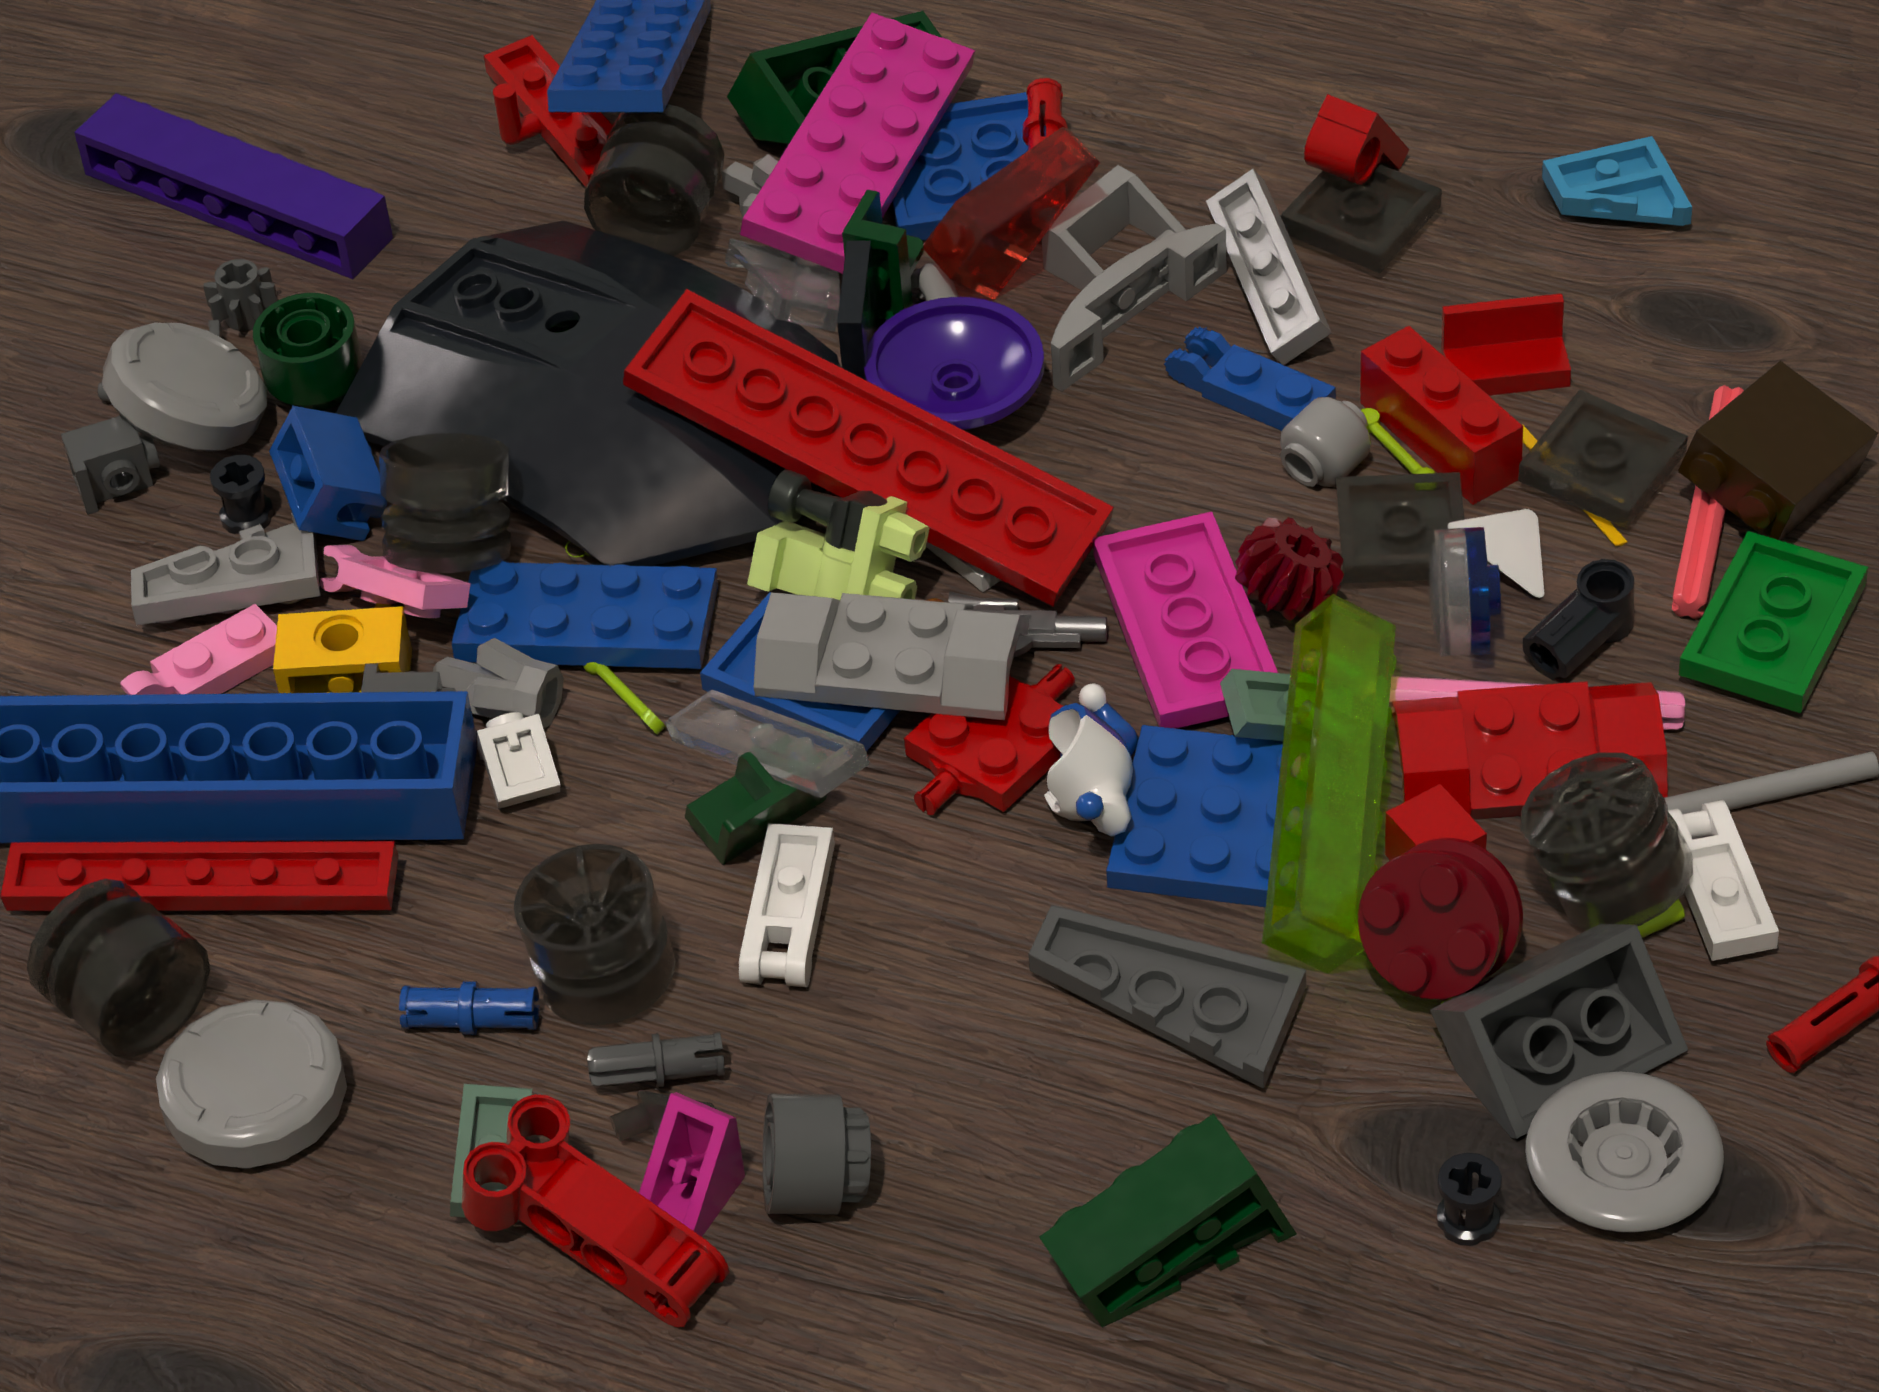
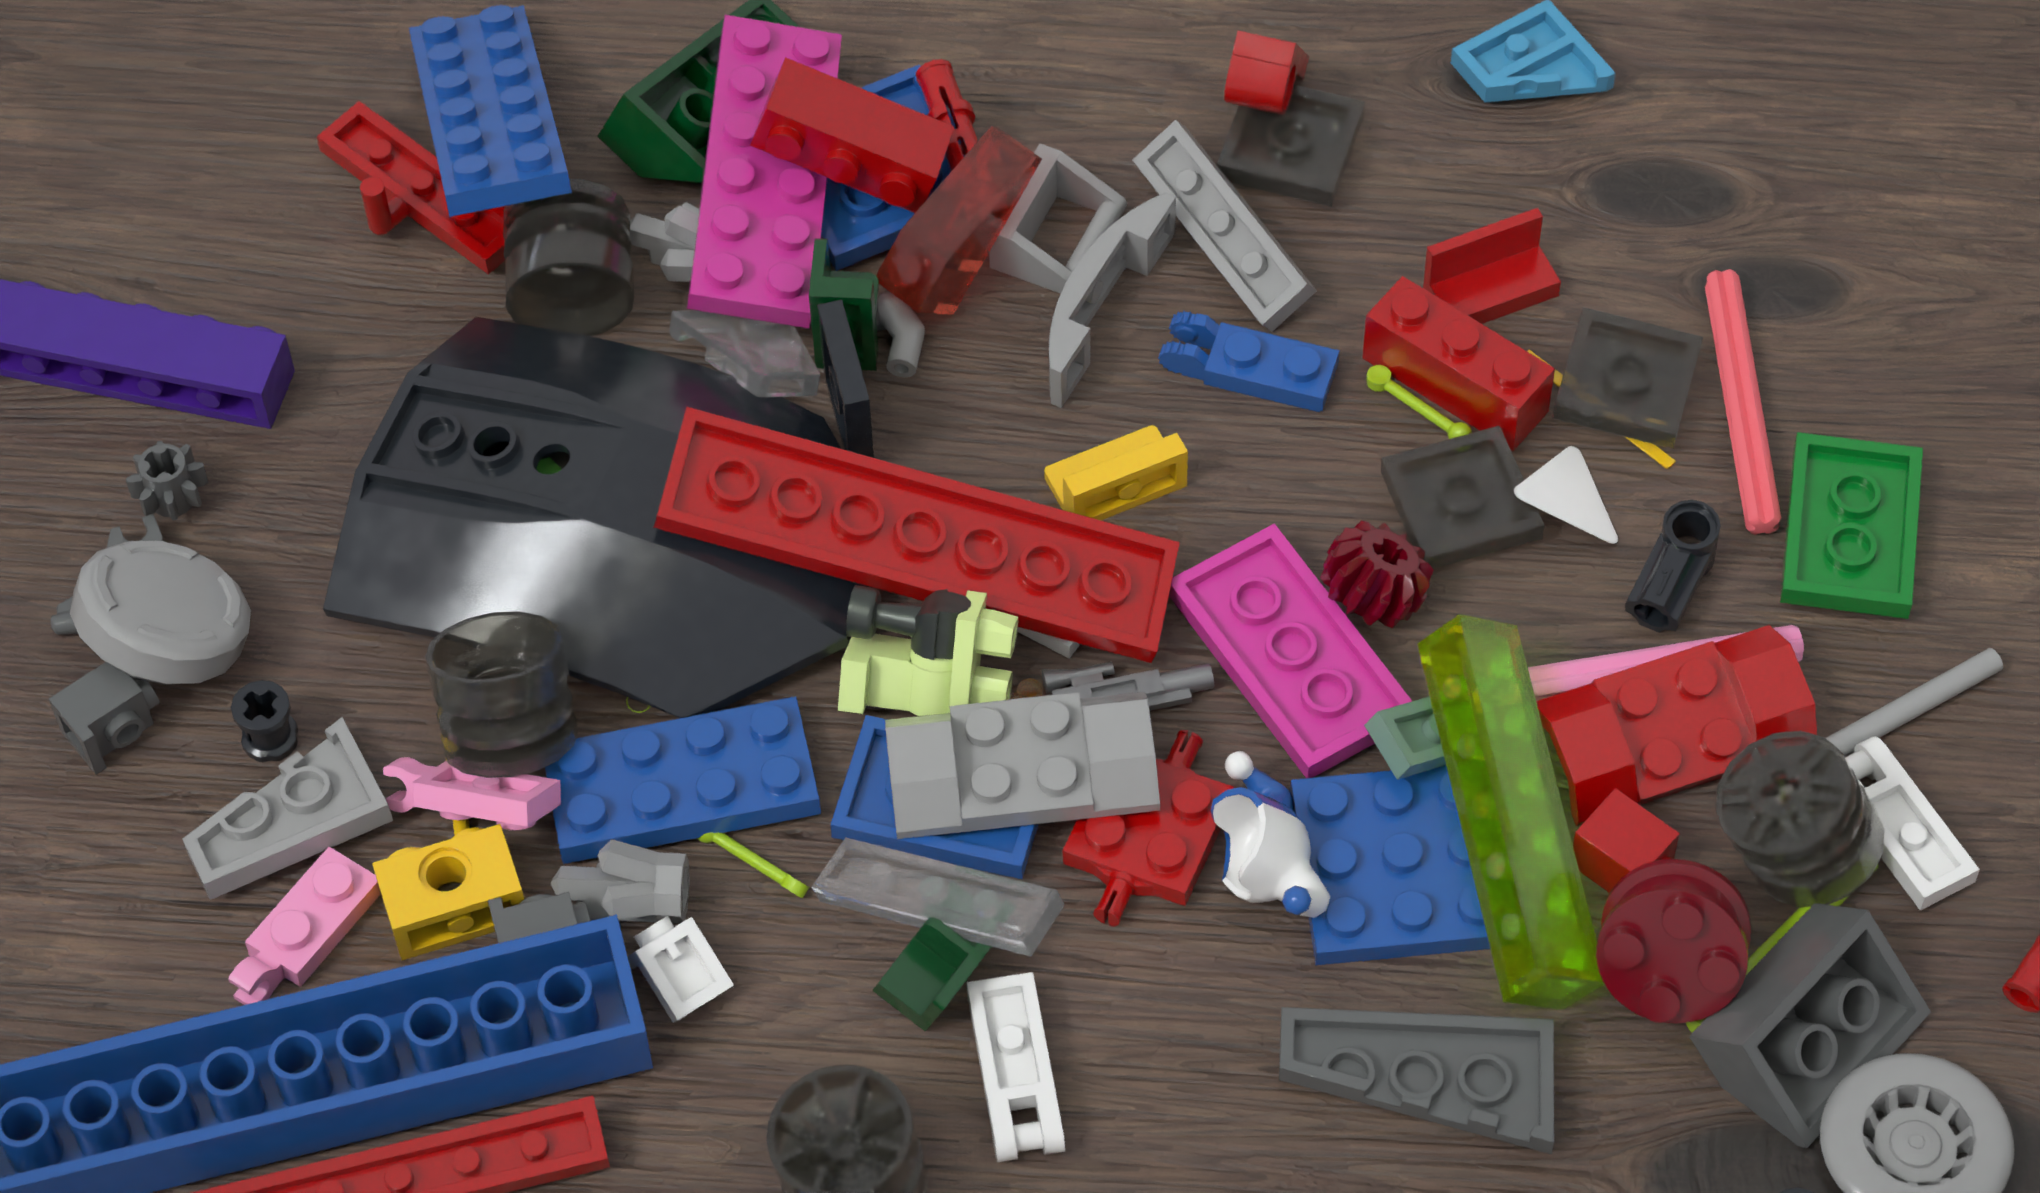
camera: 20 degrees left, 10 degrees up
(308, 350) = (274, 536): dark green piece -> none
(328, 473) = (352, 679): blue brick -> none
(937, 116) = (852, 136): none -> red brick
(958, 359) = (966, 386): dark purple dish -> none
(1092, 451) = (1119, 474): none -> yellow panel
(1324, 442) = (1354, 417): light grey head -> none
(1462, 591) = (1559, 566): clear piece -> none
(1777, 452) = (1799, 341): dark brown brick -> none

